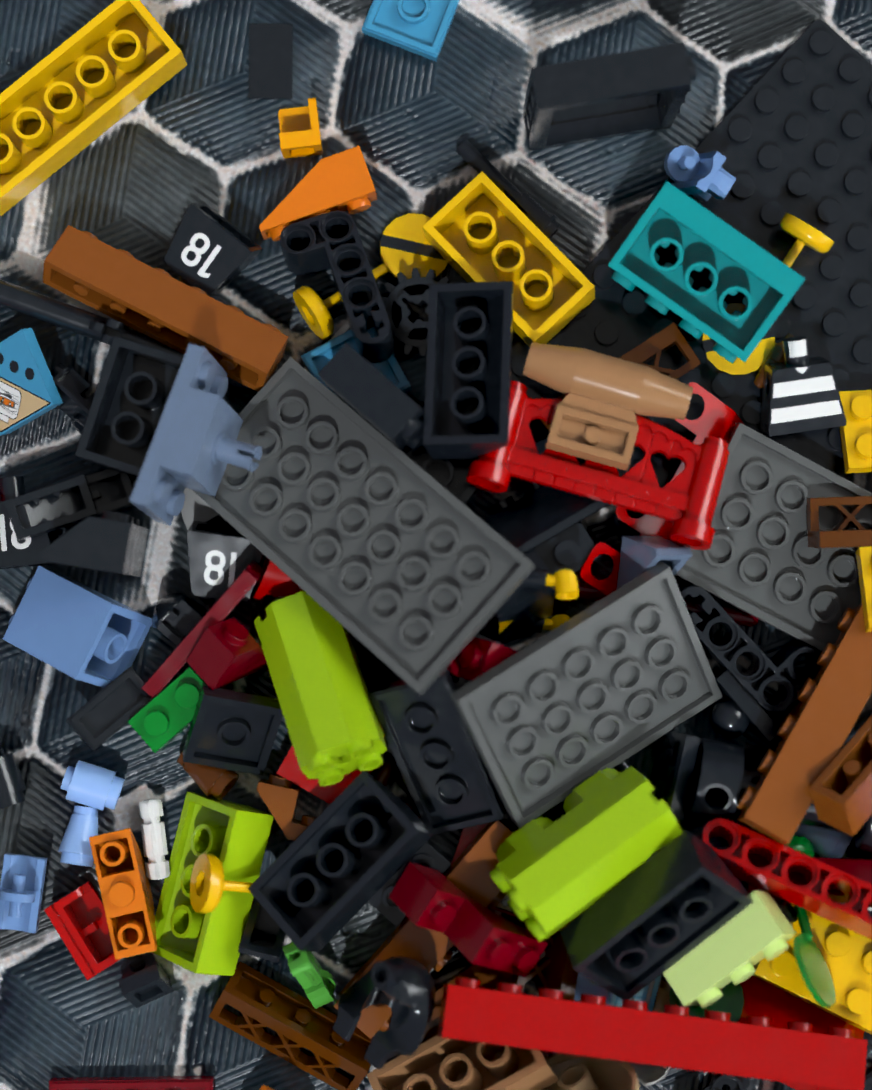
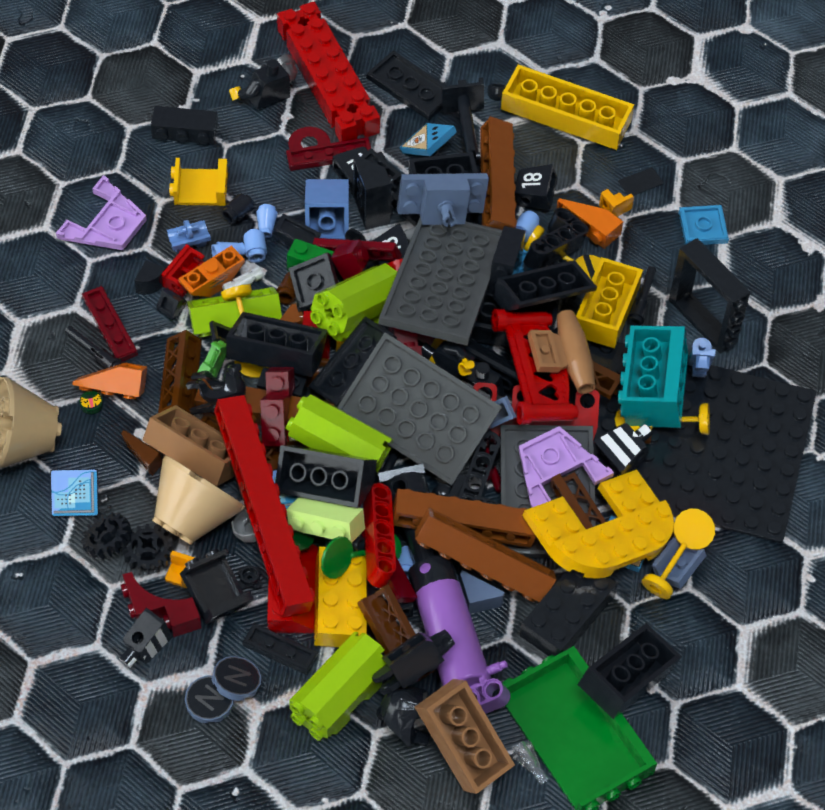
camera: 65 degrees right, 30 degrees down
(49, 742) = (266, 219): none -> light blue cone
(75, 998) = (149, 278): none -> black brick
(276, 307) = (528, 222): none -> light blue brick
(771, 522) = (555, 454): none -> lavender wing

